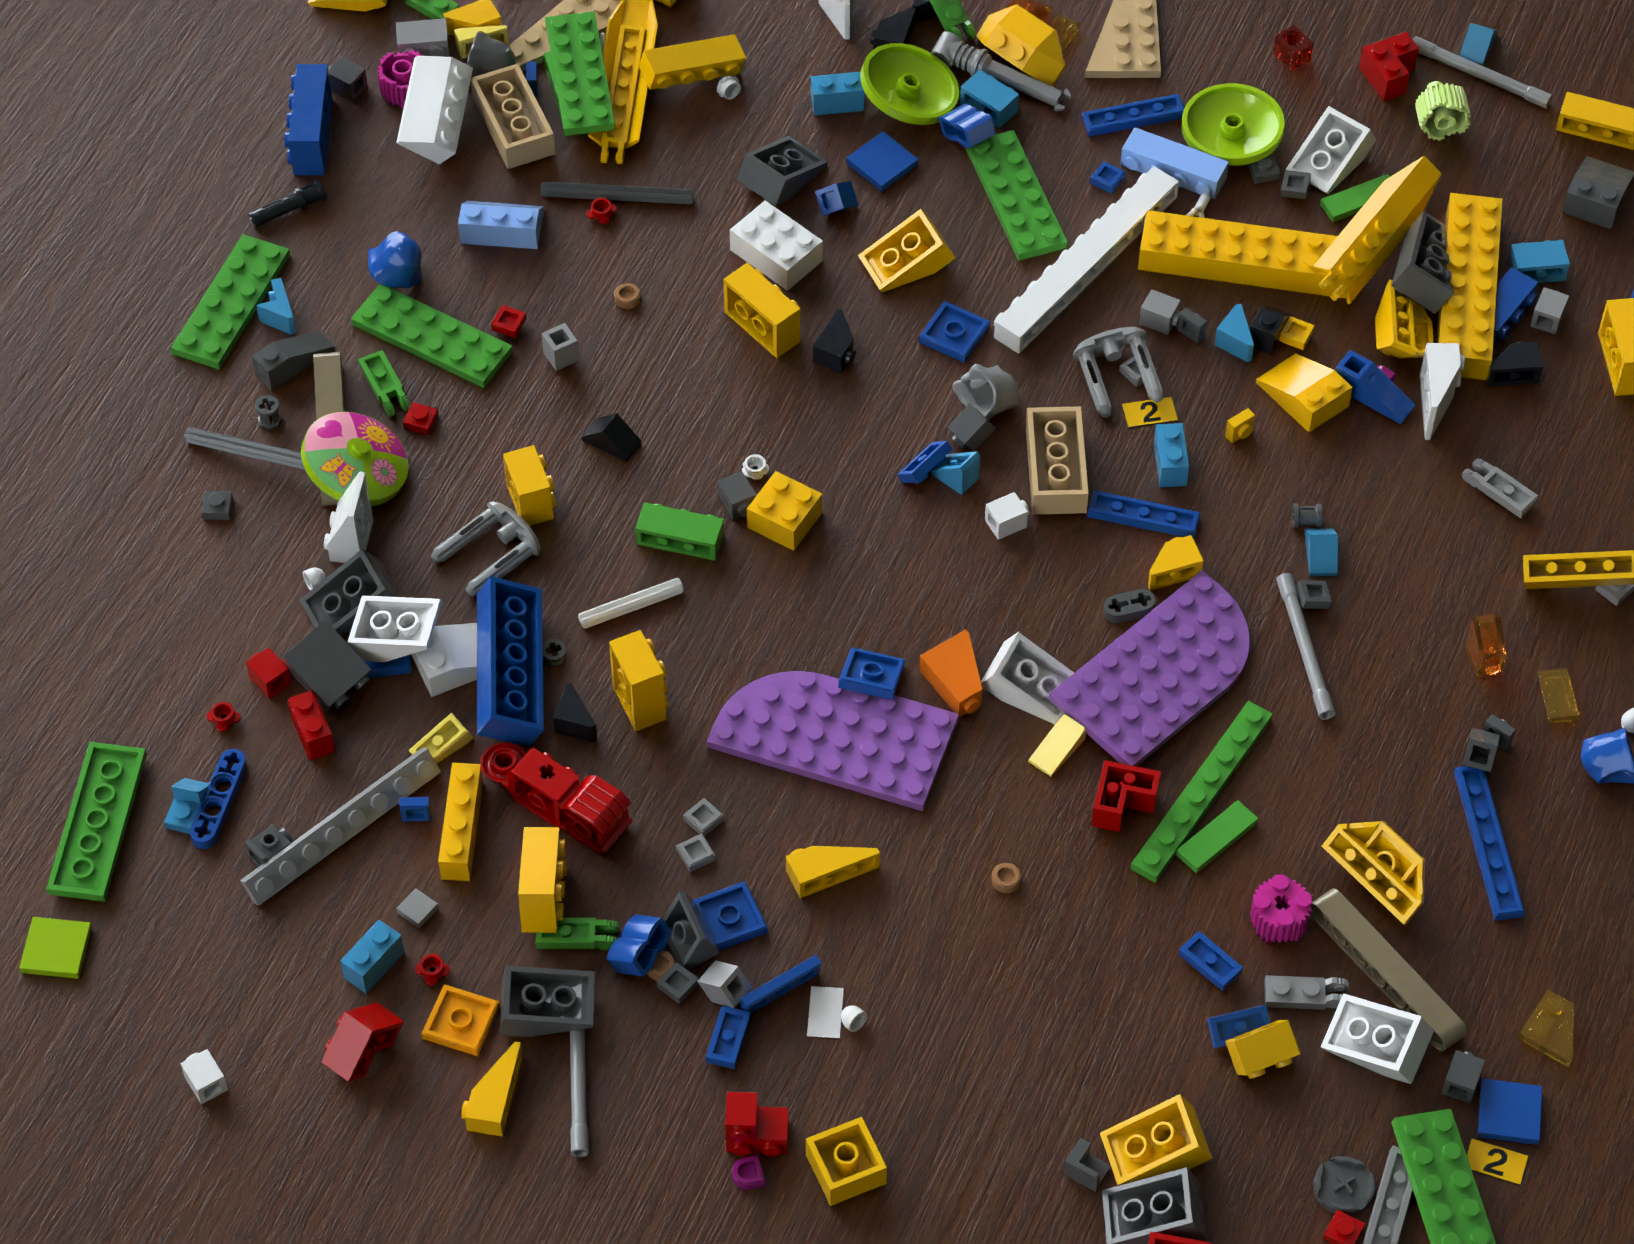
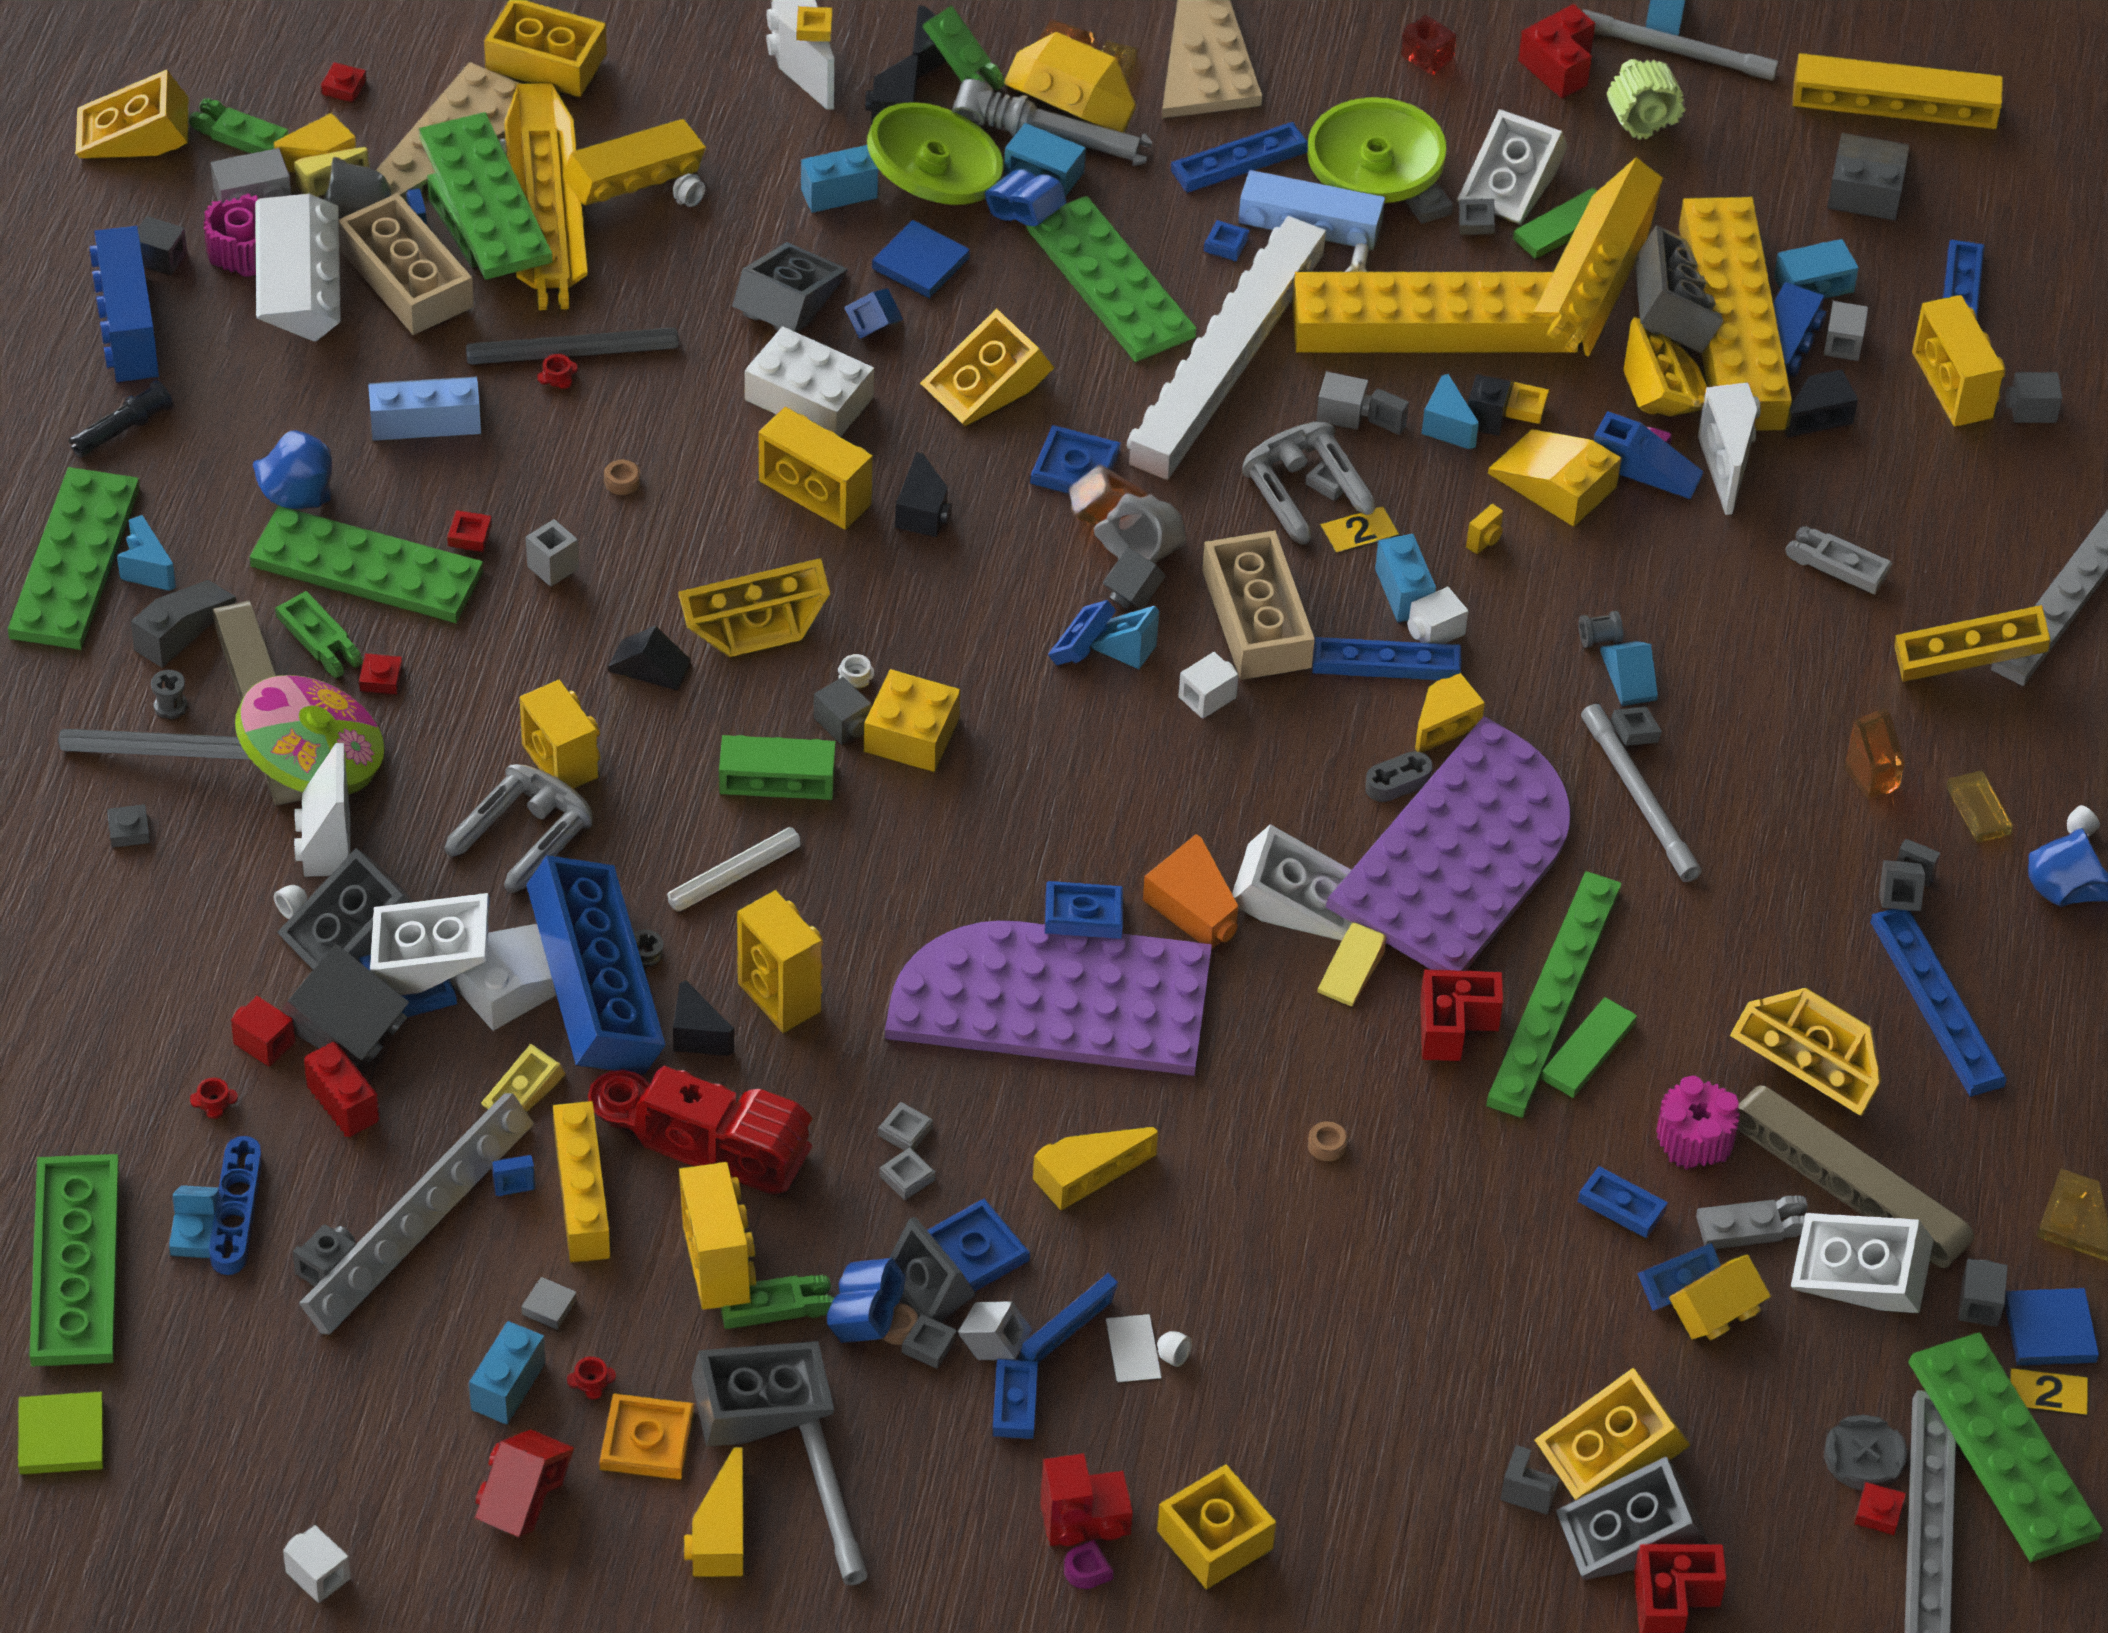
camera: 15 degrees left, 5 degrees down
(694, 410) = (757, 608): none -> yellow wedge
(962, 356) = (1099, 494): none -> clear orange slope
(1187, 489) = (1438, 618): none -> white brick

